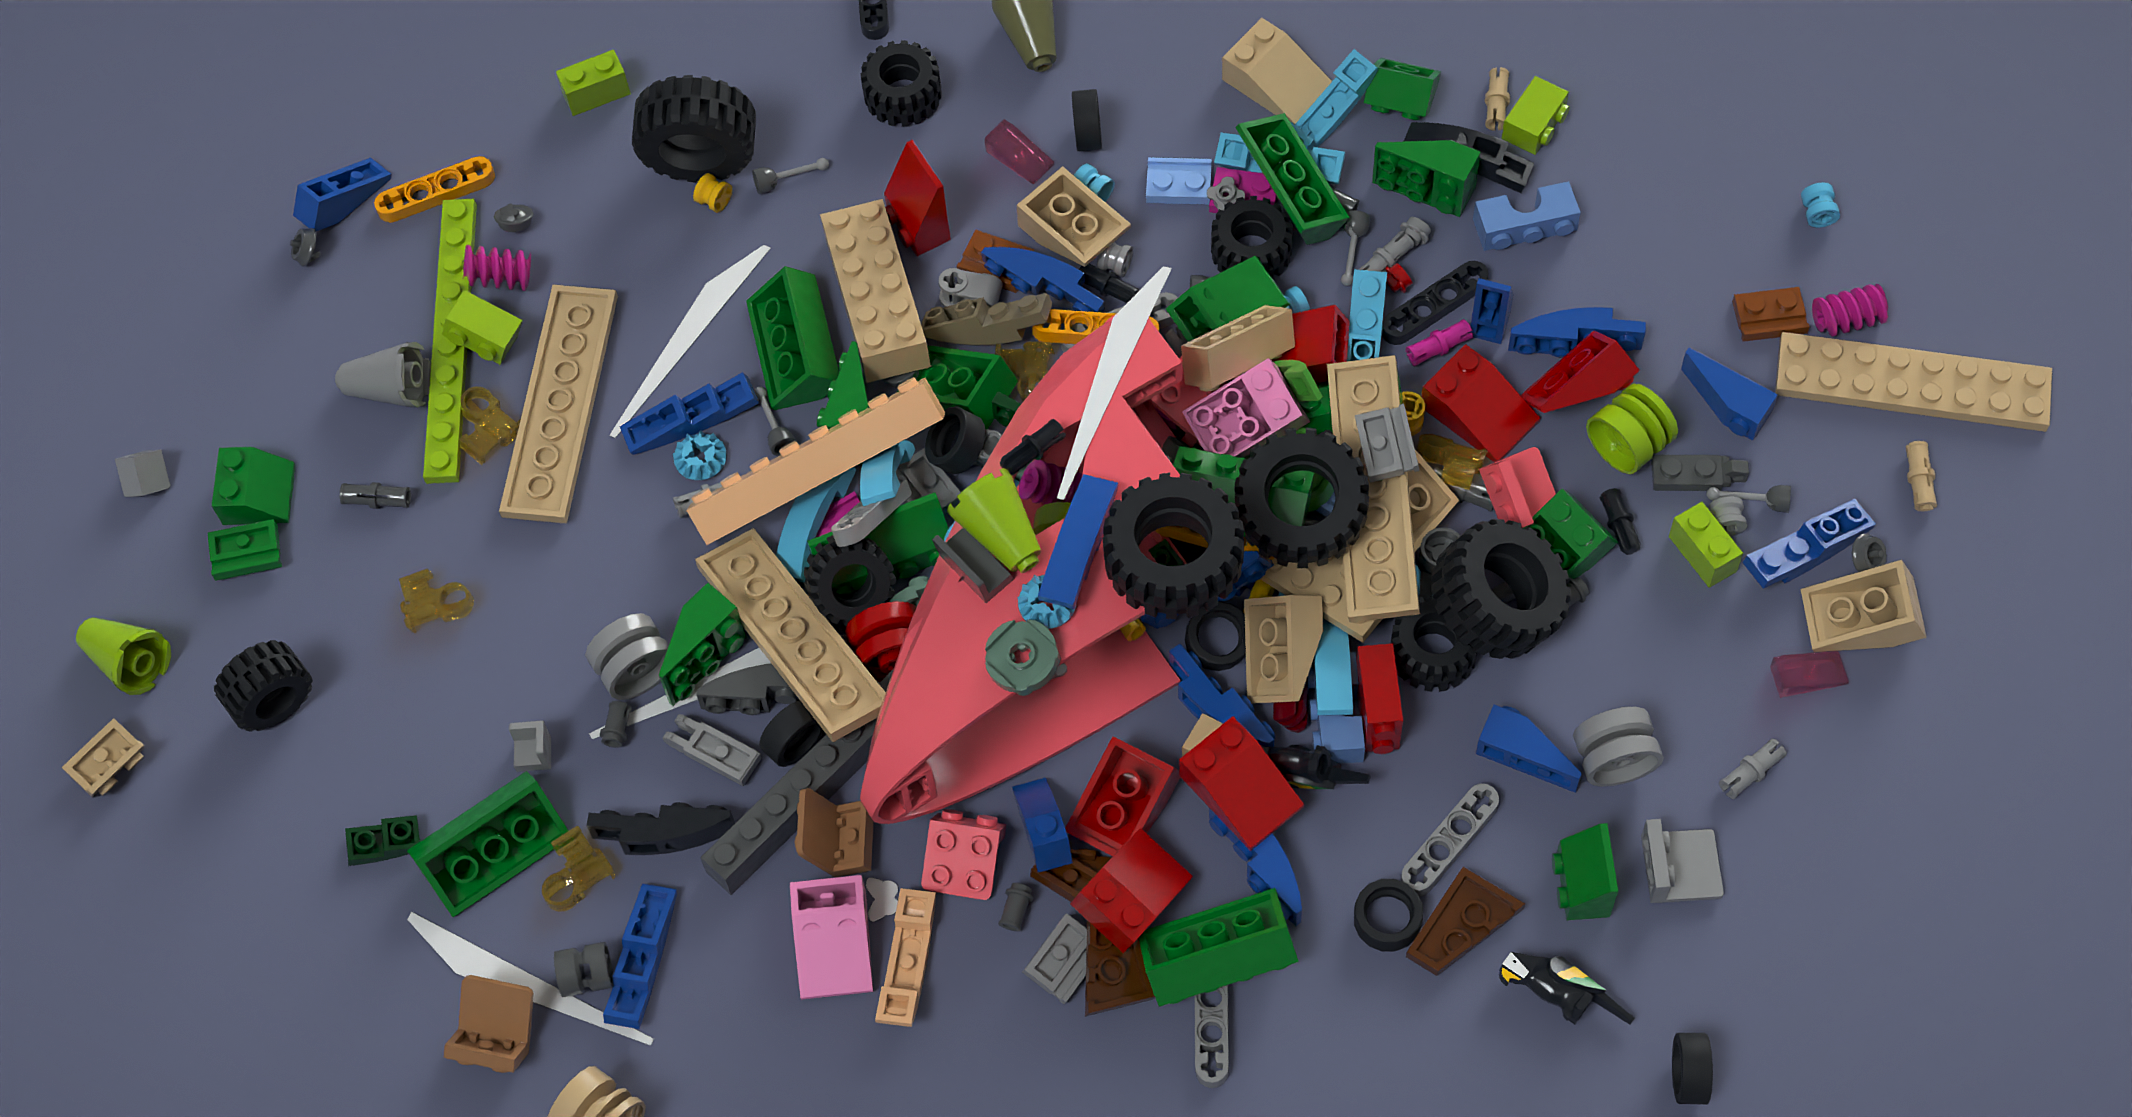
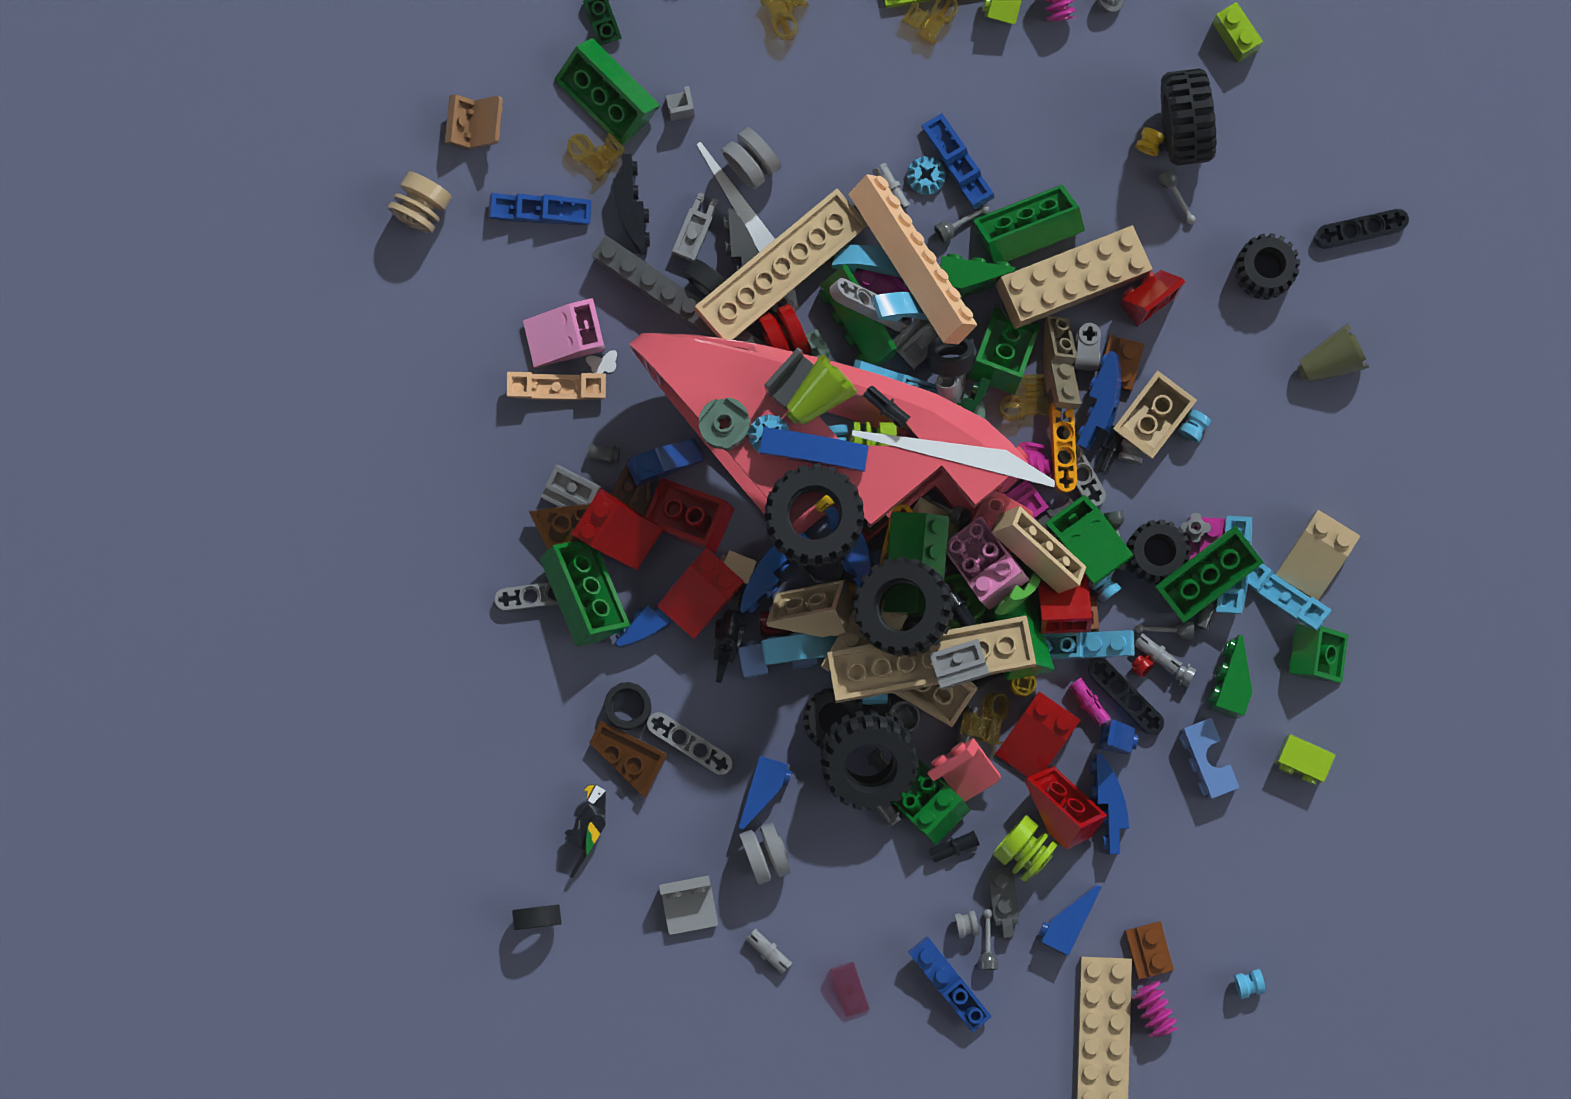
camera: 75 degrees right, 20 degrees up
(472, 960) = (521, 110): white sticker -> none
(558, 404) = (956, 66): tan plate -> none
(571, 972) = (522, 173): dark grey wheel -> none
(614, 732) = (705, 158): dark grey pin -> none
(702, 638) = (768, 202): green slope -> none
(703, 310) = (1053, 155): white sticker -> none
(833, 558) = (808, 301): black tyre -> none
(834, 835) = (635, 316): medium nougat bracket -> none
(962, 854) = (638, 411): coral bracket -> none
(1017, 152) = (1219, 366): clear pink slope -> none
(1086, 120) = (1248, 413): black tyre -> none
(1178, 180) = (1211, 491): light blue plate -> none
(1379, 698) = (782, 683): red brick -> none
(1494, 160) = (1260, 710): black slope -> none
(1497, 98) = (1319, 728): tan pin -> none
(1586, 874) = (668, 837): green slope -> none
(1705, 544) = (939, 908): lime brick -> none
(1864, 610) = (901, 1026): tan slope -> none
(1868, 552) = (947, 1028): dark grey hat -> none
(1921, 476) = (1020, 1066): tan pin -> none

